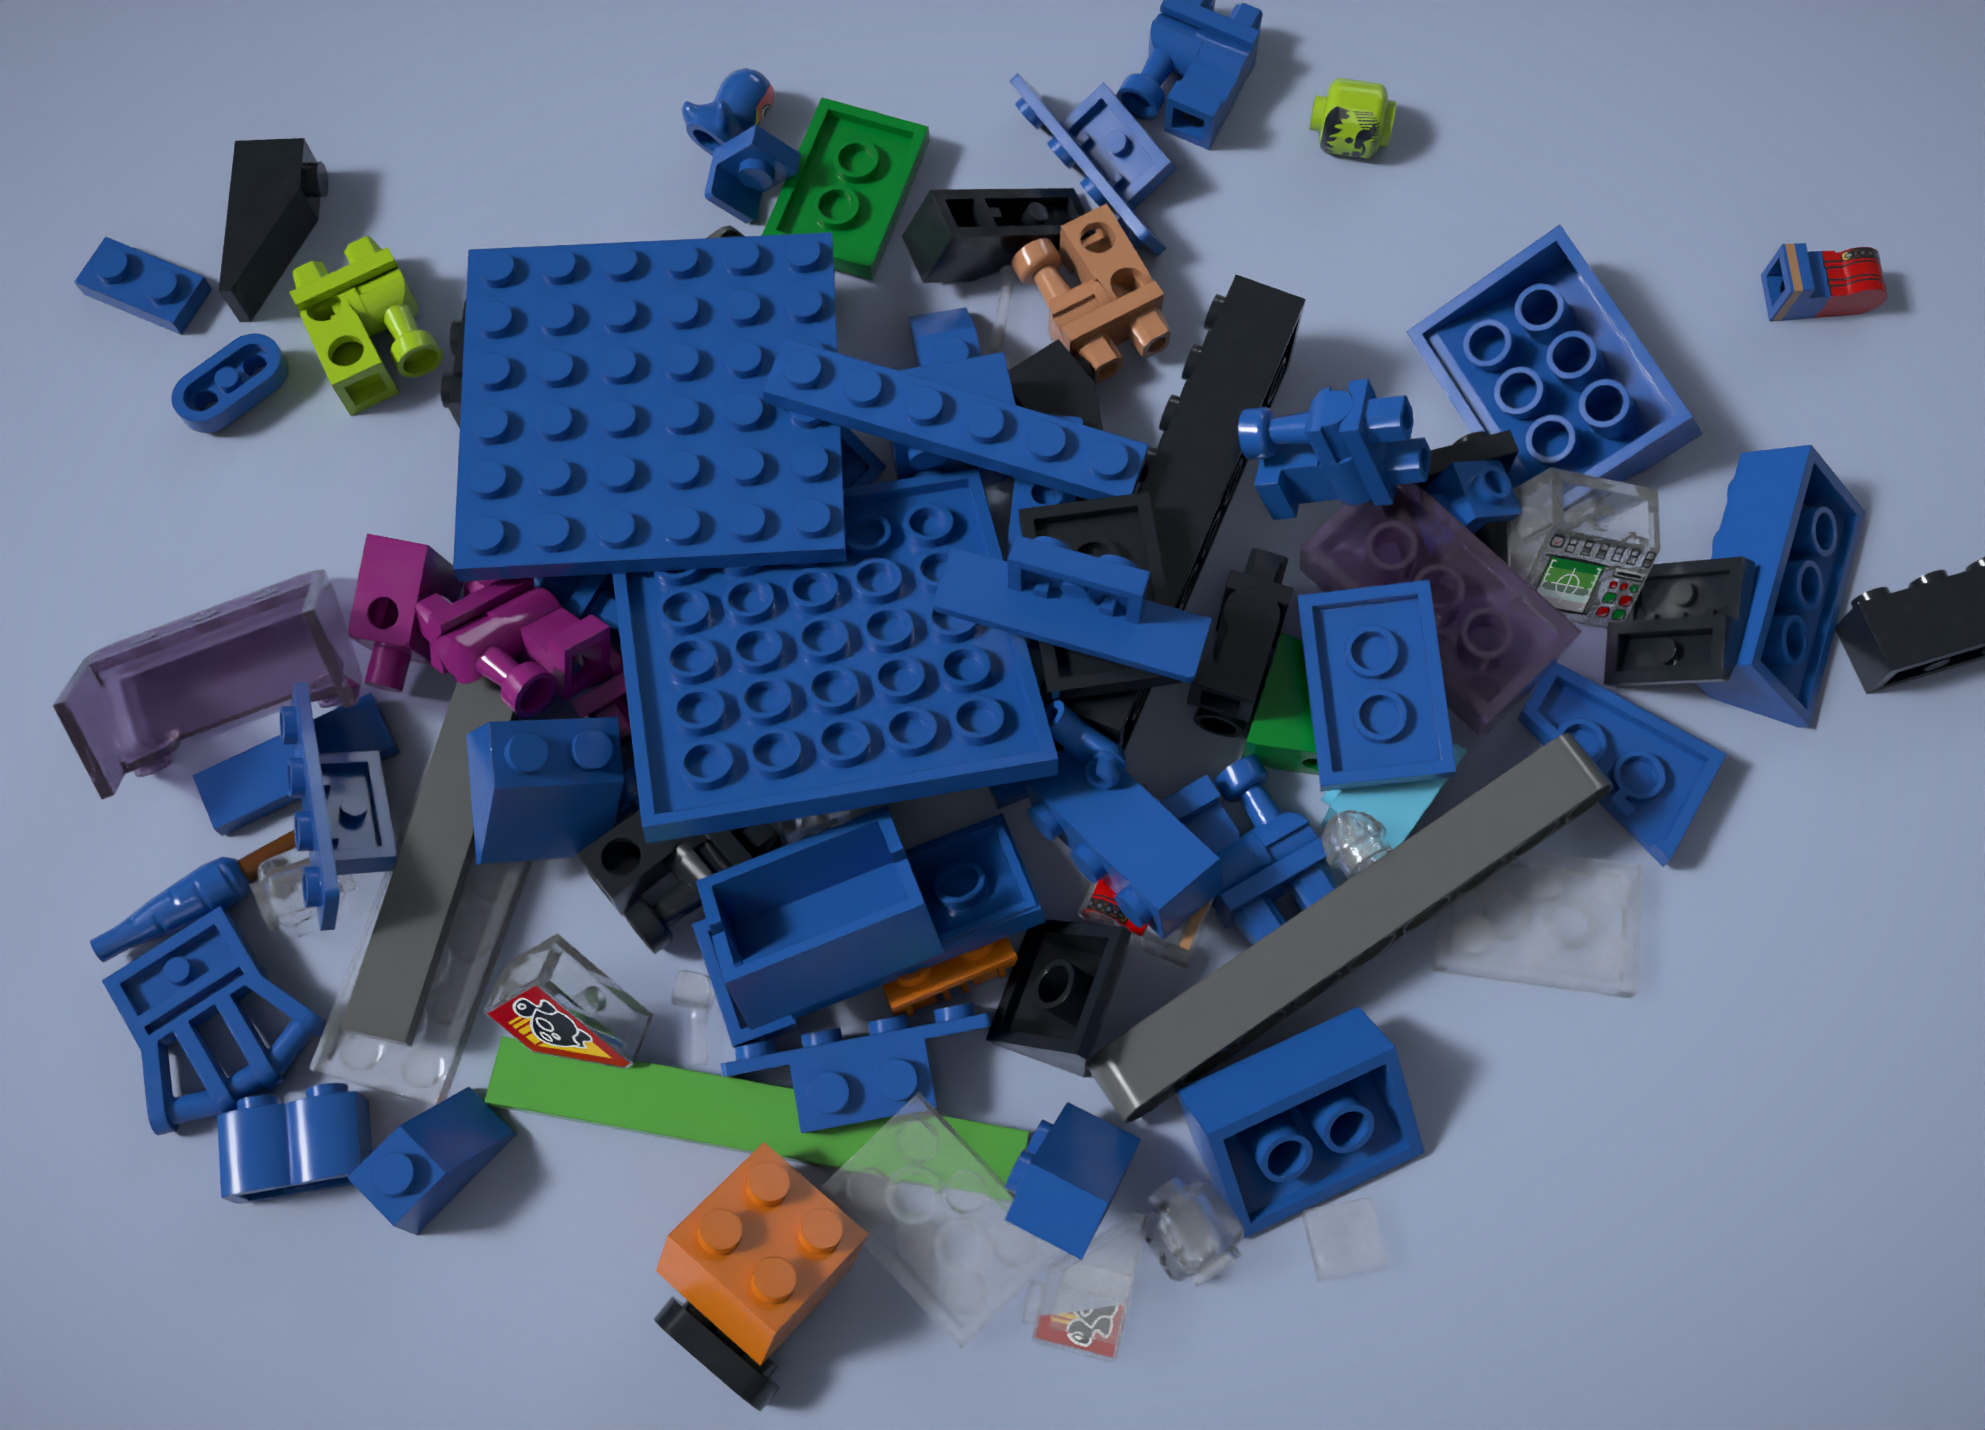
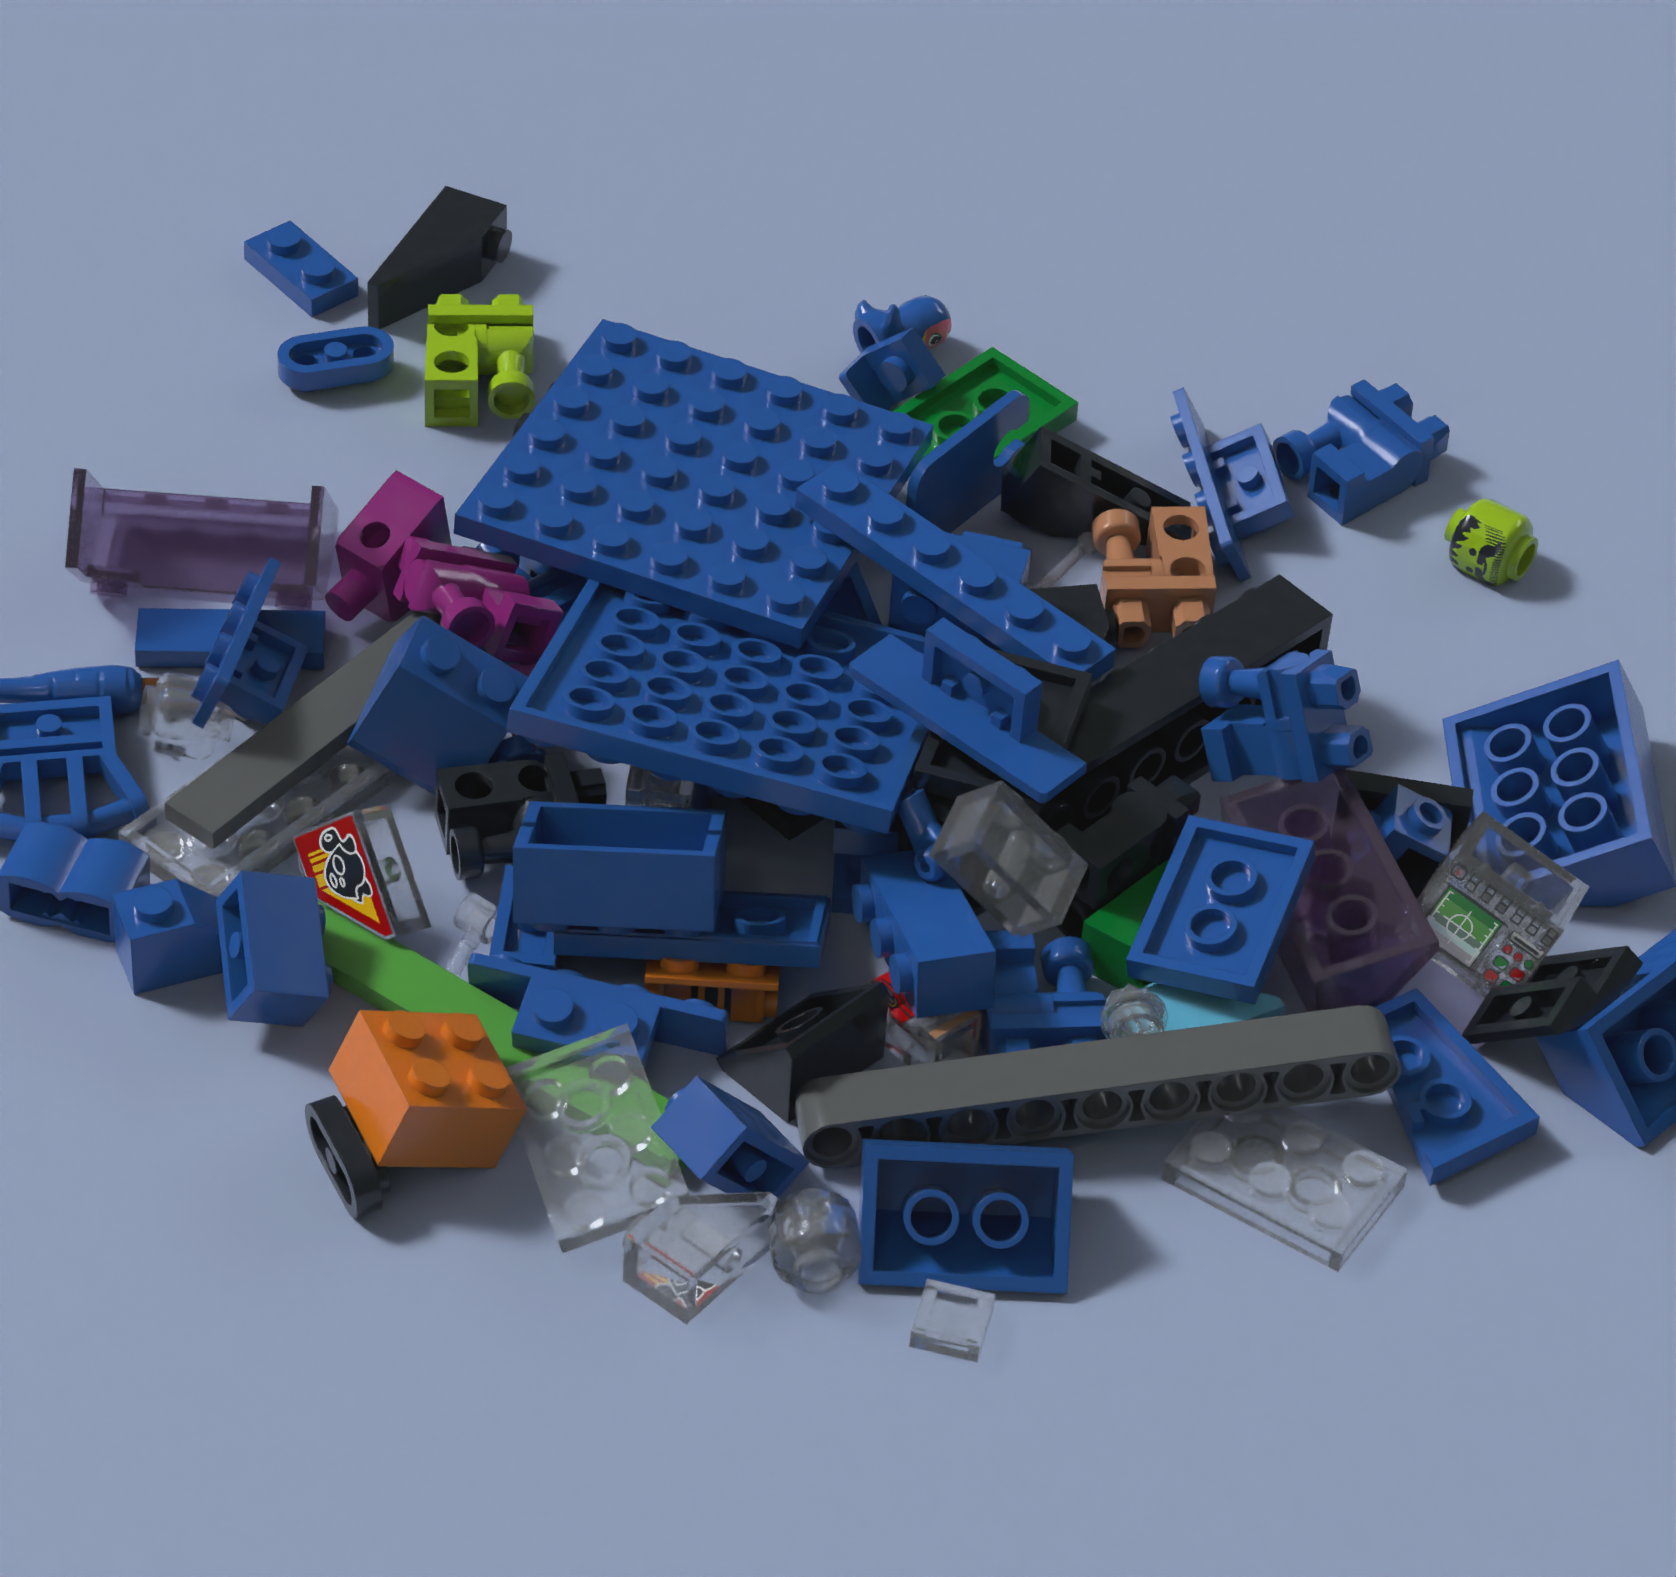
camera: 20 degrees right, 25 degrees down
(533, 1154) = (272, 948): none -> blue brick
(878, 263) = (961, 472): none -> blue piece
(1173, 737) = (1009, 859): none -> clear brick

